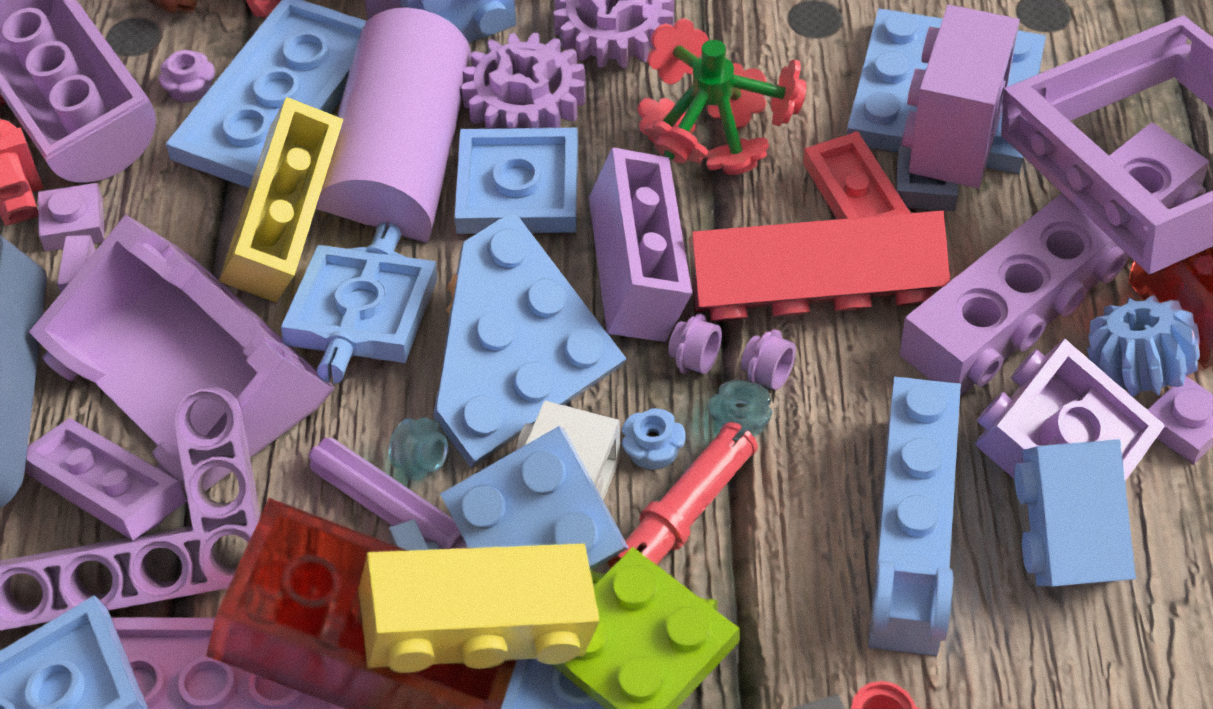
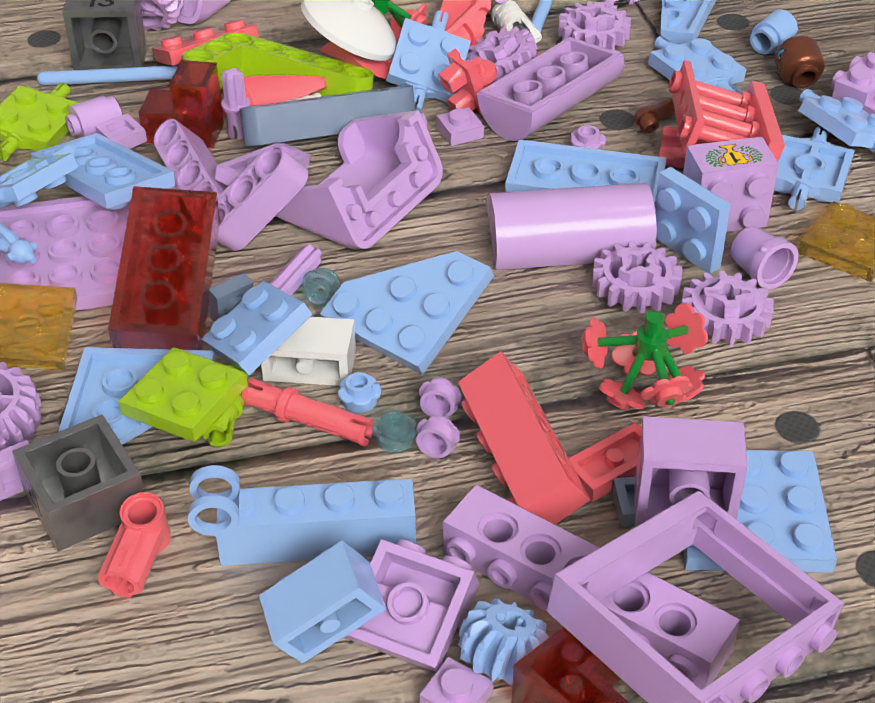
camera: 75 degrees right, 10 degrees down
(281, 200) = (464, 182): light yellow brick -> none
(360, 303) = (420, 234): light blue plate -> none
(477, 606) = (162, 290): light yellow brick -> none
(517, 172) = (553, 291): light blue plate -> none
(639, 245) = (528, 337): lavender brick -> none

